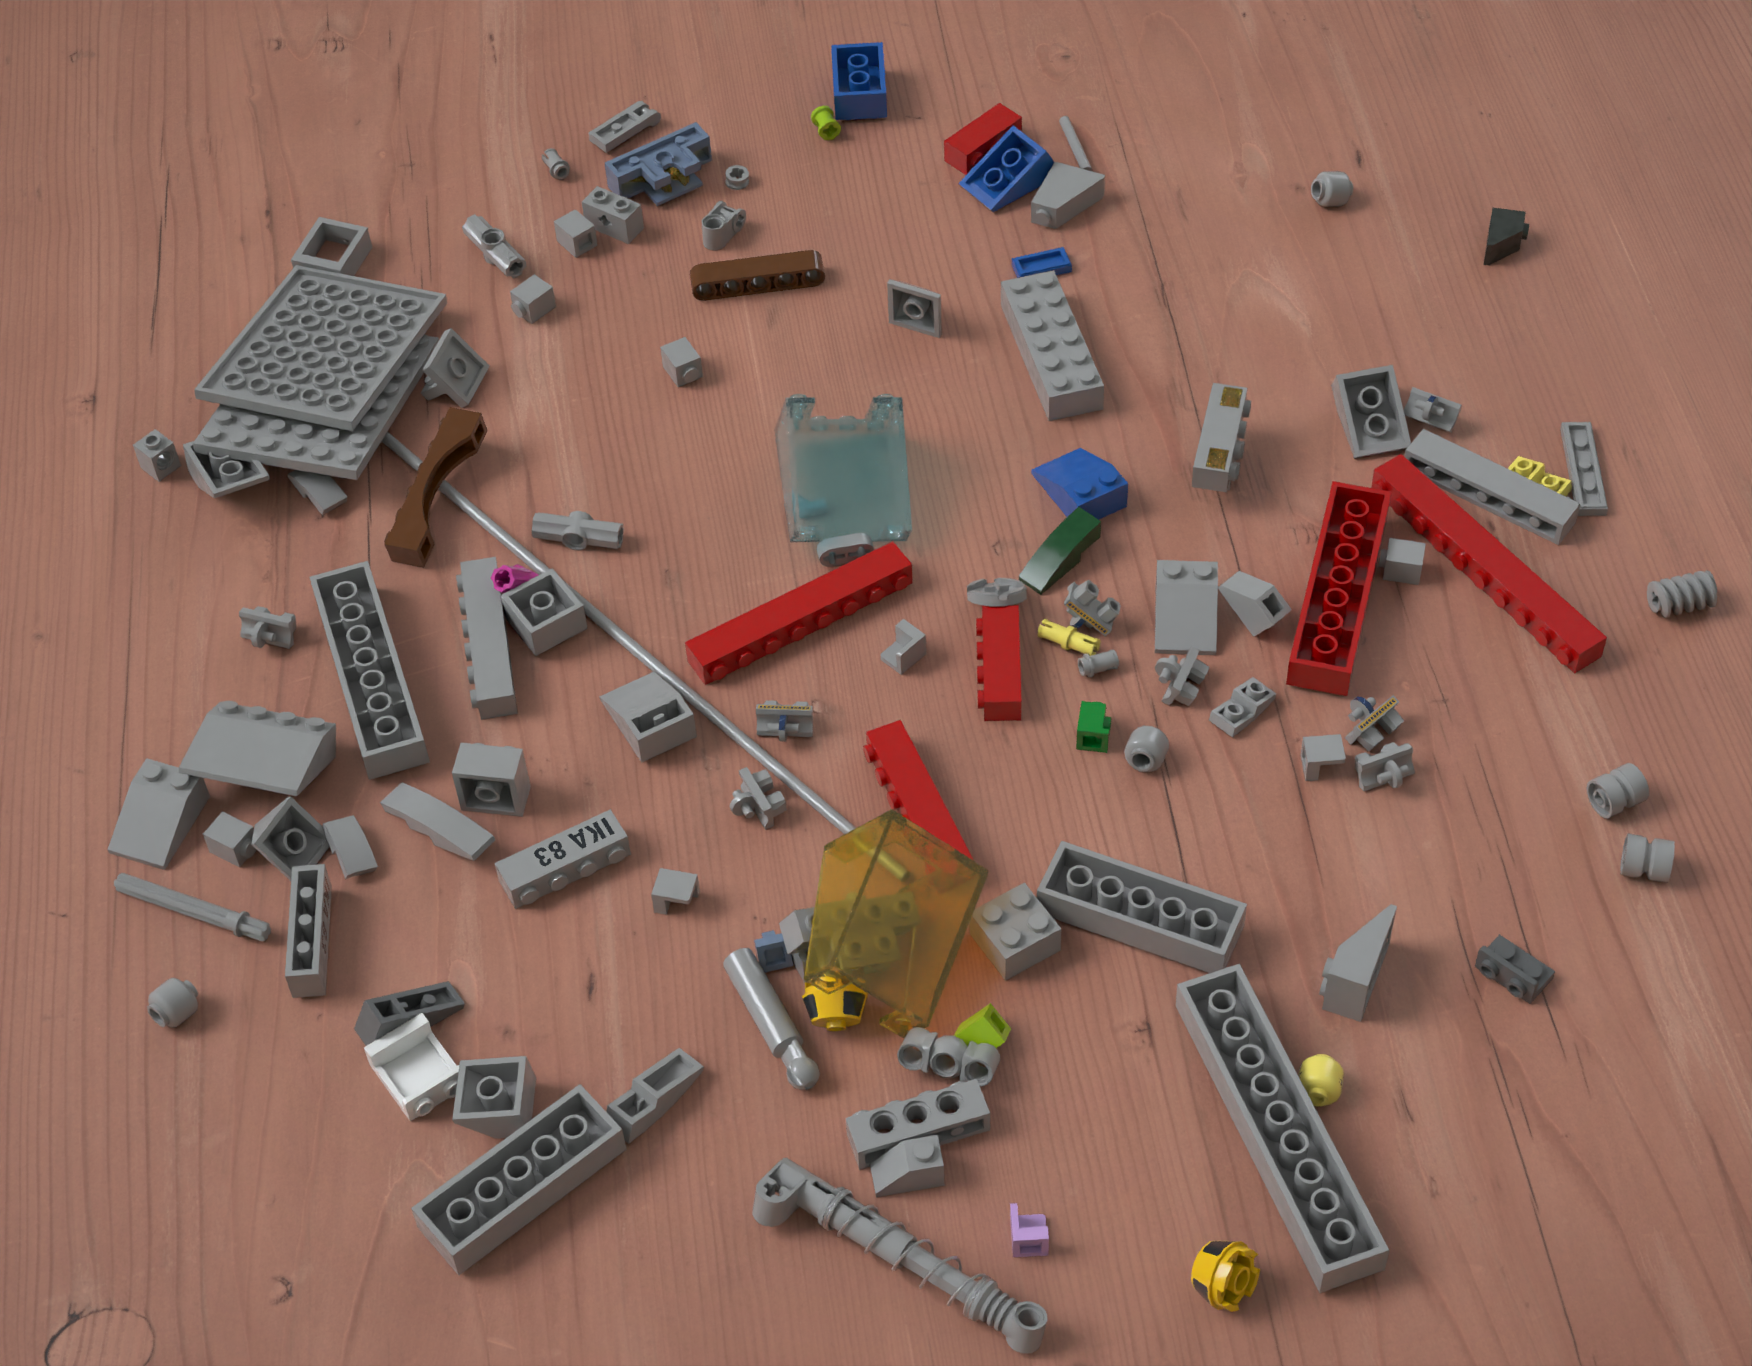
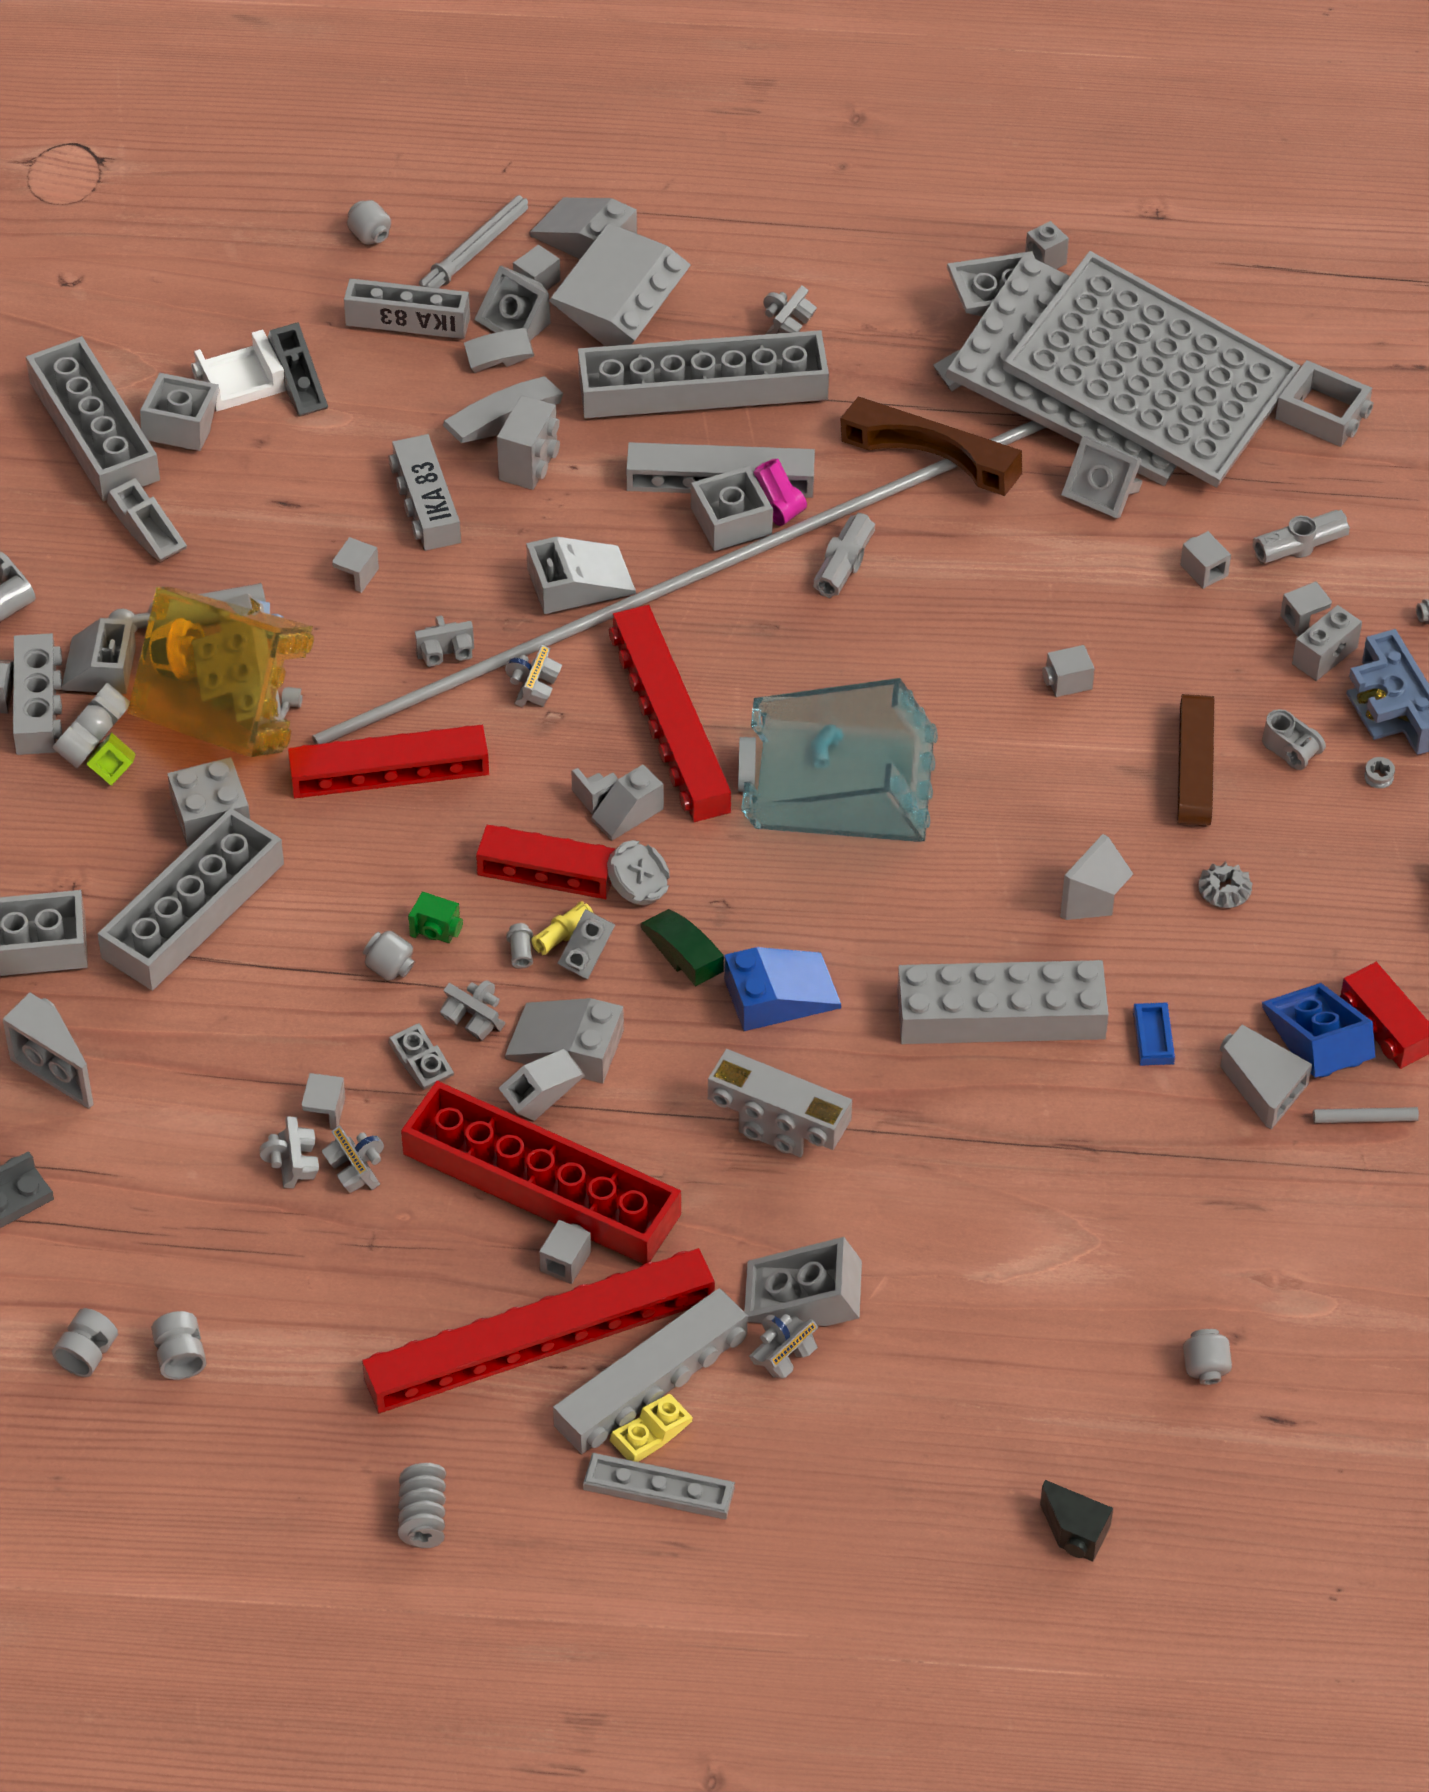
camera: 100 degrees right, 0 degrees up
(857, 1072) = (100, 656): none -> light grey slope
(886, 251) = (1230, 895): none -> light grey gear
(919, 612) = (629, 802): none -> light grey slope

